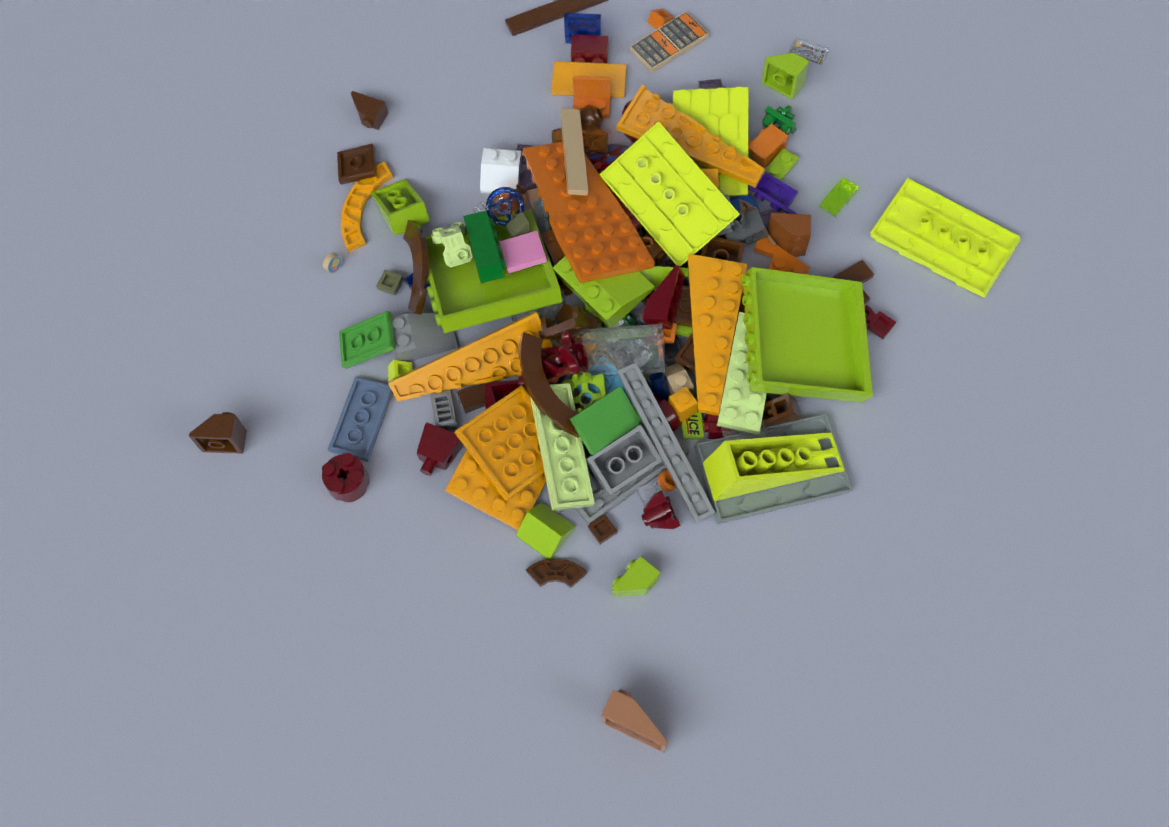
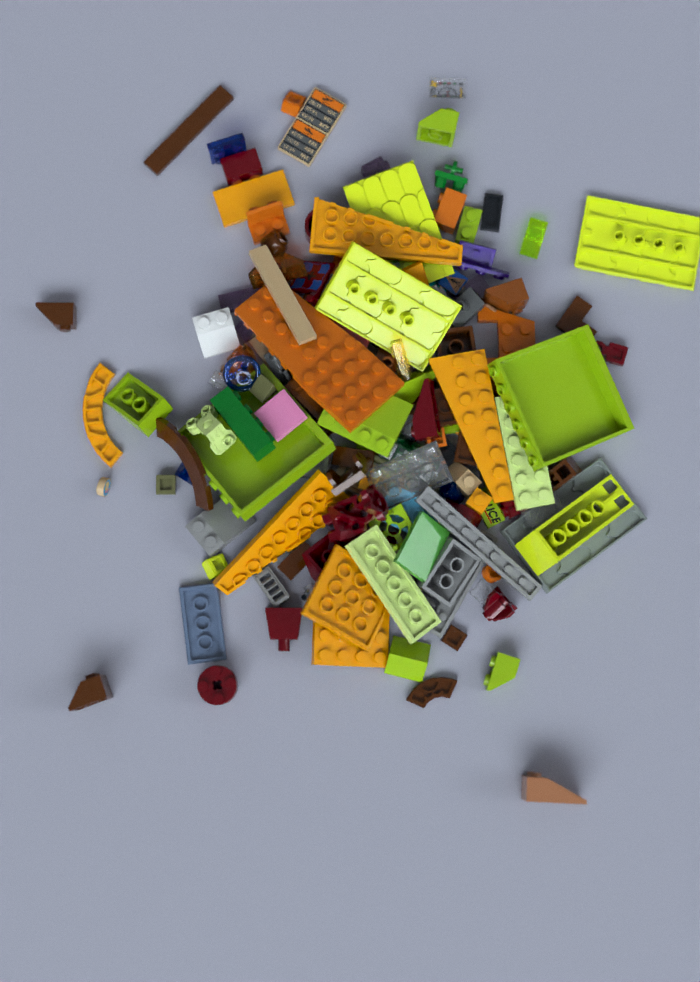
camera: 30 degrees left, 15 degrees up
(356, 164) = (75, 376): reddish brown tile -> none
(367, 339) = (174, 551): bright green tile -> none
(538, 386) = (353, 541): reddish brown tile -> none
(661, 237) = (403, 367): none -> clear yellow plate
(807, 163) = (491, 212): none -> black tile

